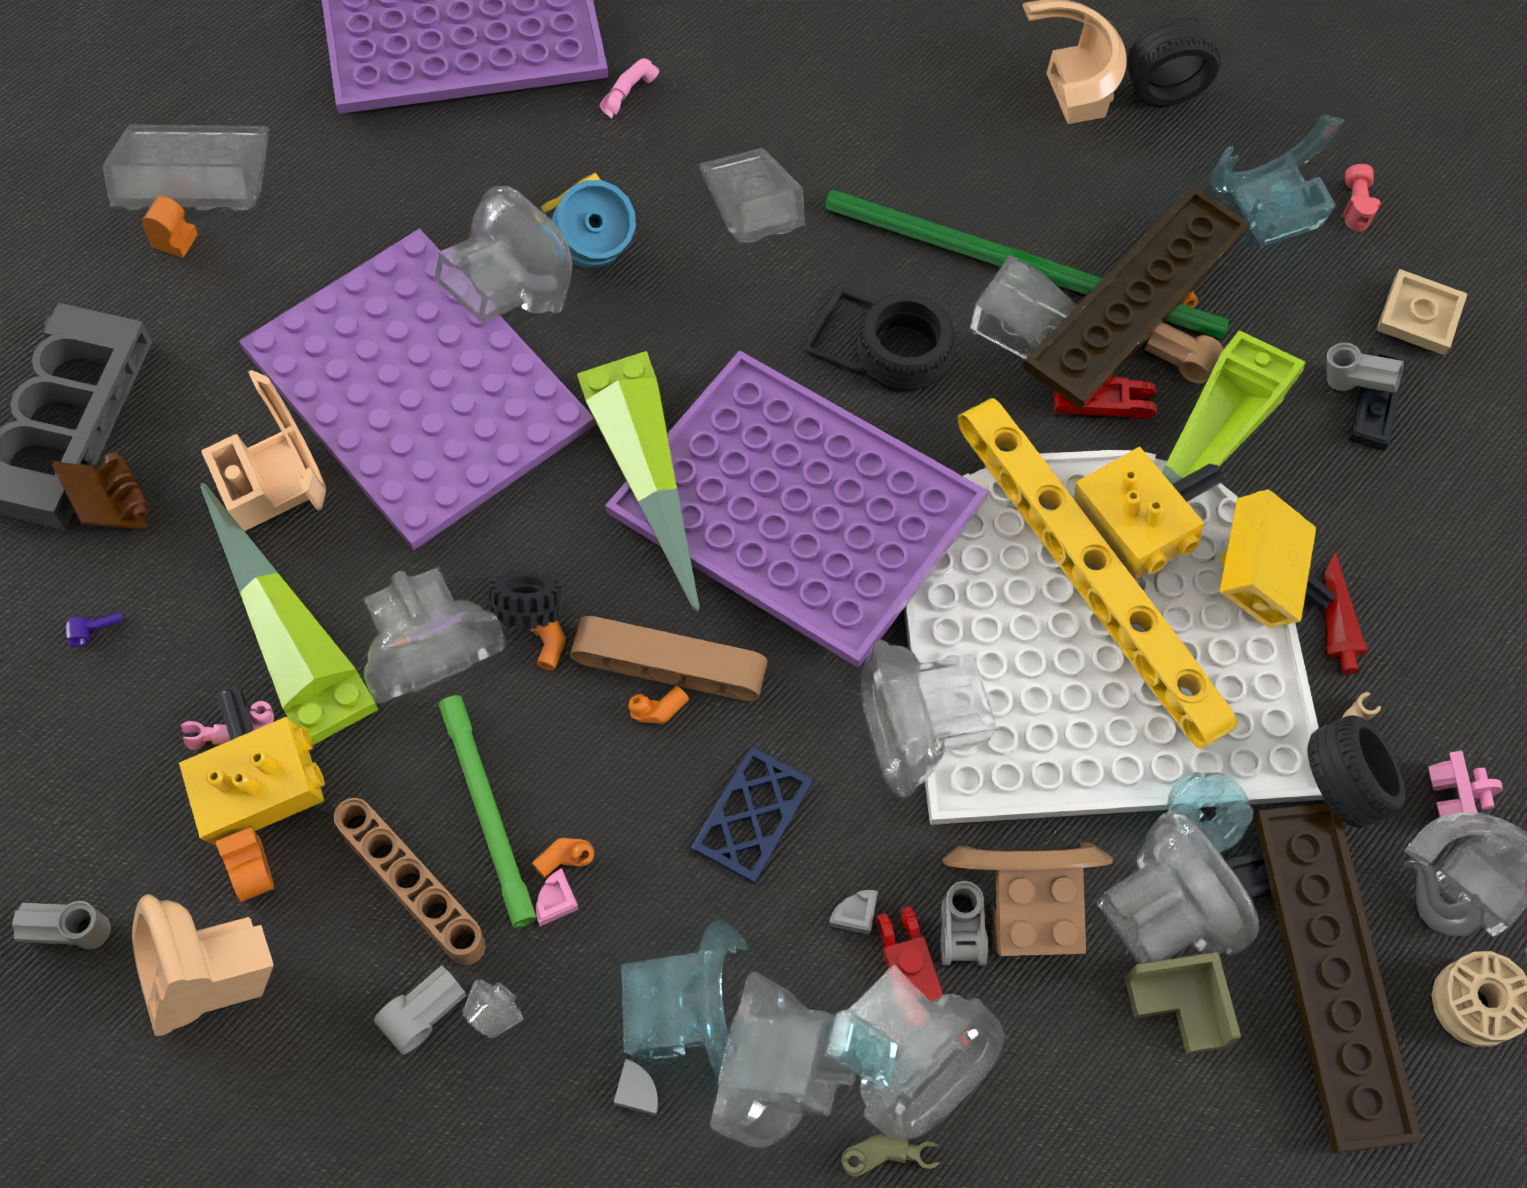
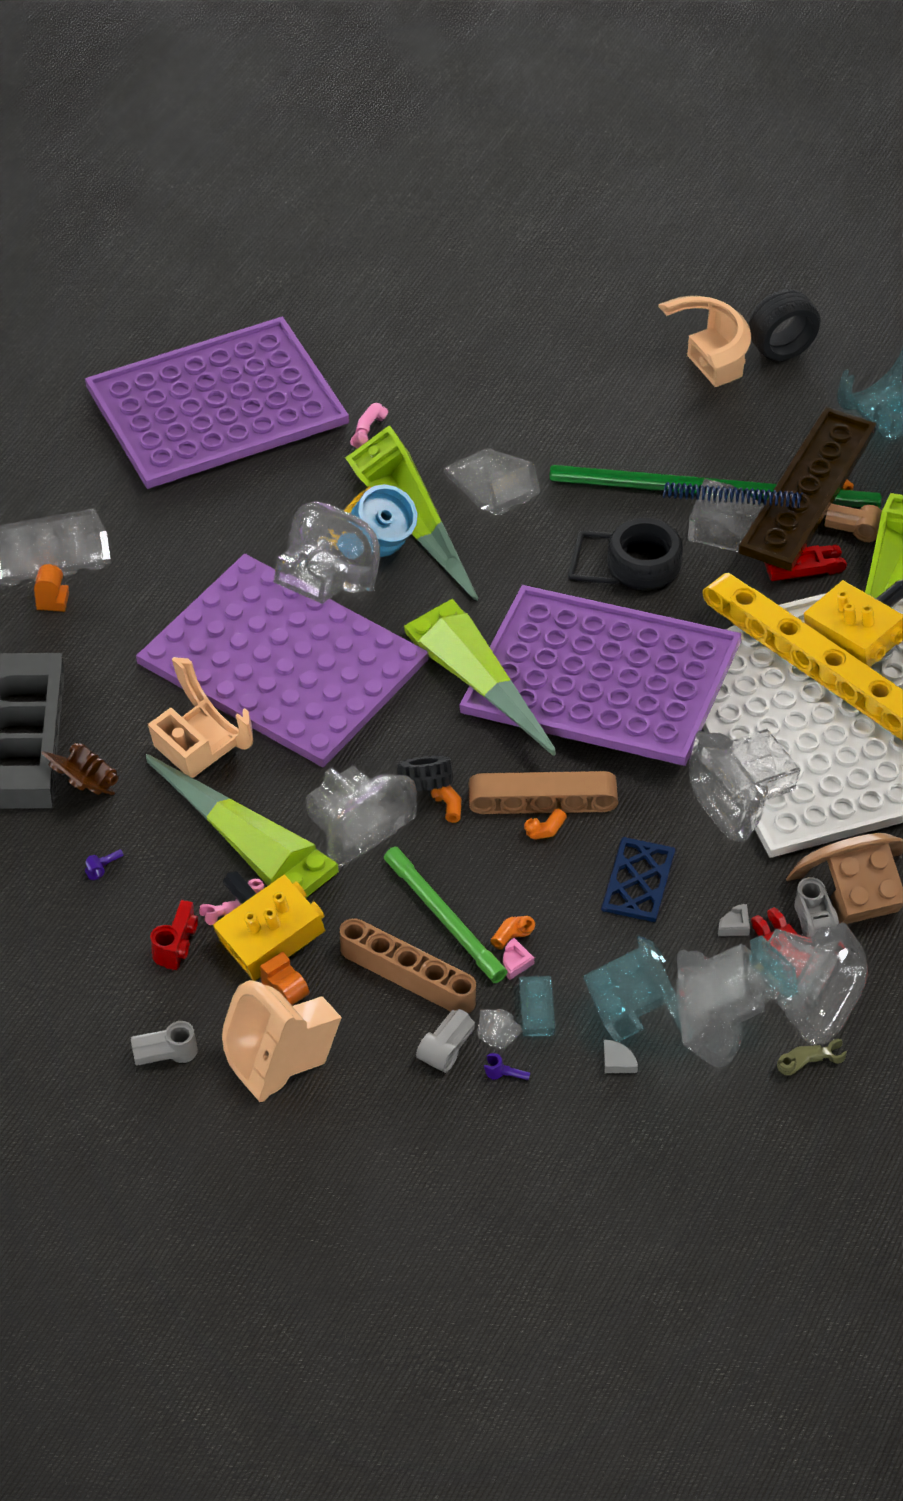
camera: 10 degrees left, 15 degrees down
(141, 760) = (171, 942): none -> red plate
(482, 1068) = (497, 1068): none -> dark purple hand
(558, 979) = (537, 1006): none -> clear light blue plate
(630, 157) = (389, 463): none -> lime plate
(964, 268) = (737, 491): none -> dark blue piece

